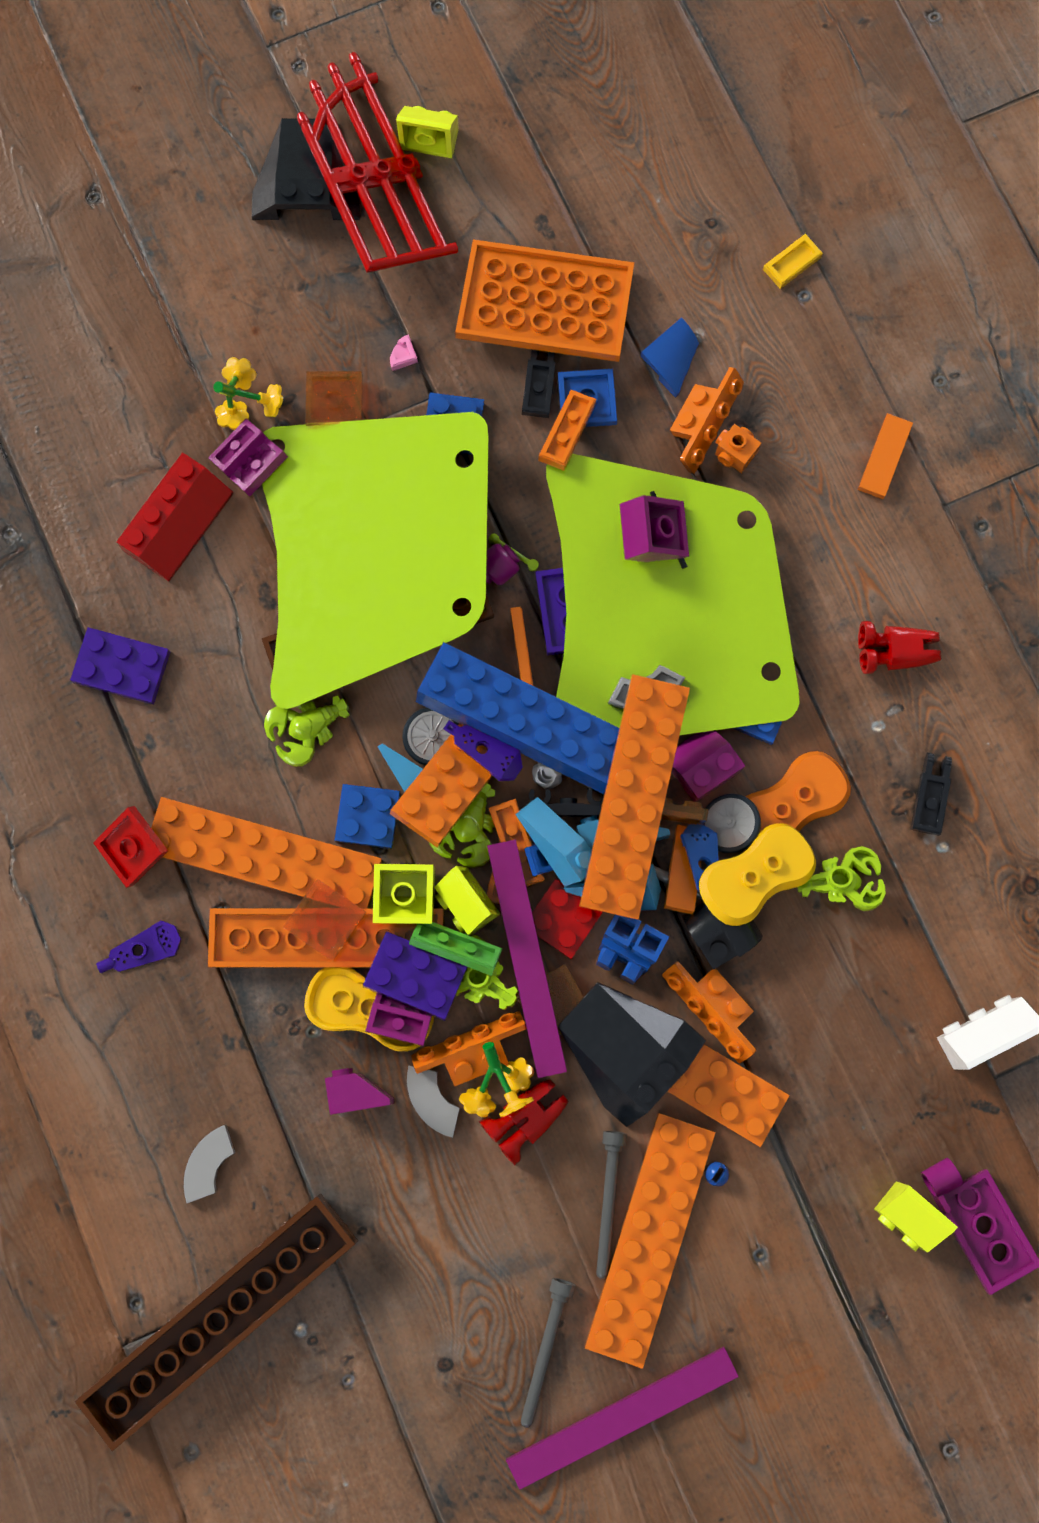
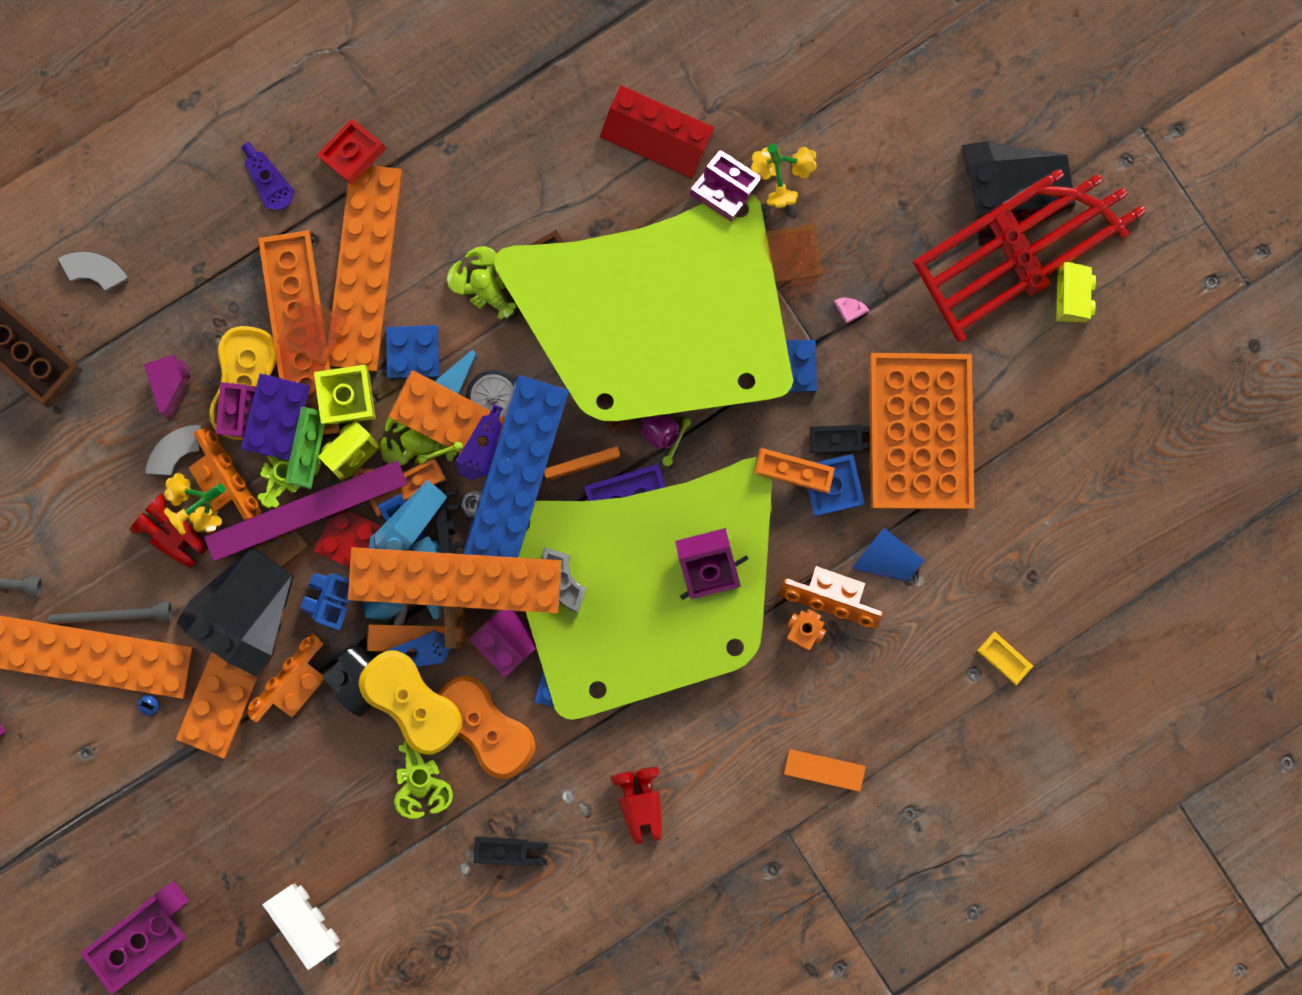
camera: 80 degrees right, 5 degrees up
(120, 665) = (514, 110): dark purple plate -> none
(488, 819) = (457, 446): none -> lime hinge
(734, 821) = (457, 676): light grey wheel -> none
(914, 1217) = (134, 878): neon yellow slope -> none

